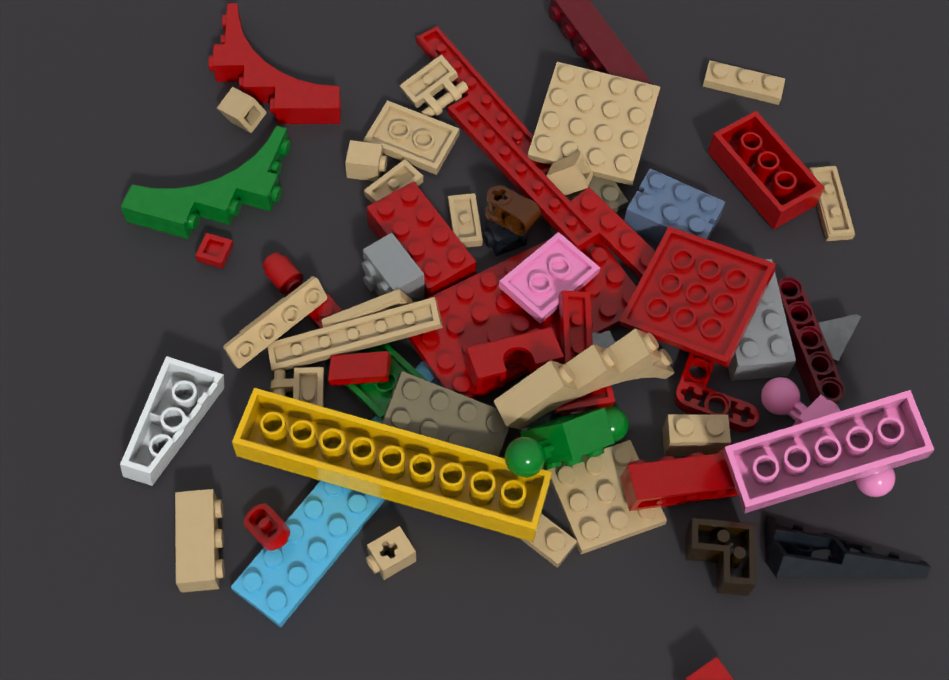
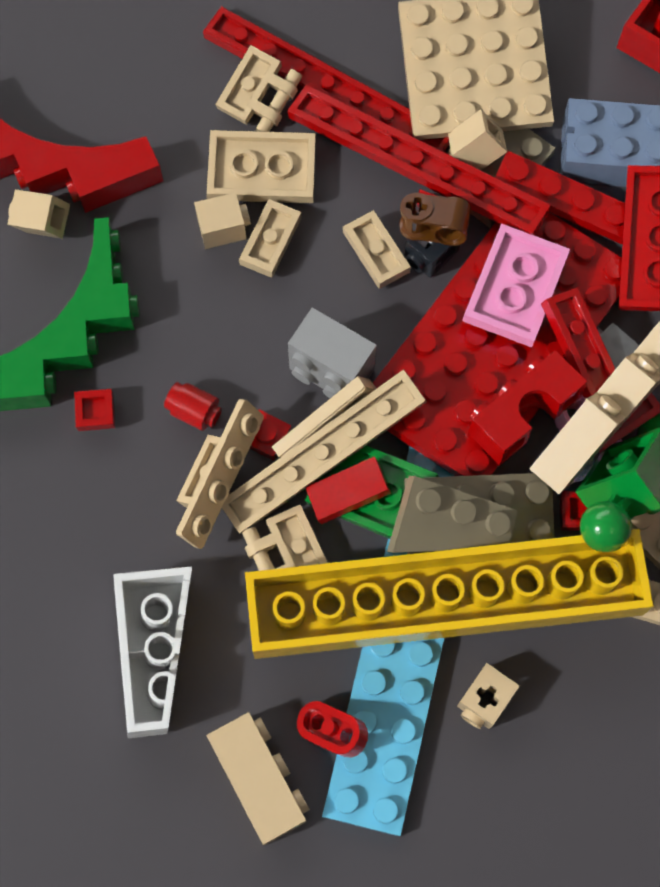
camera: 20 degrees left, 10 degrees up
(415, 408) = (447, 519): none -> dark tan wing
(423, 236) = (322, 277): red brick -> none

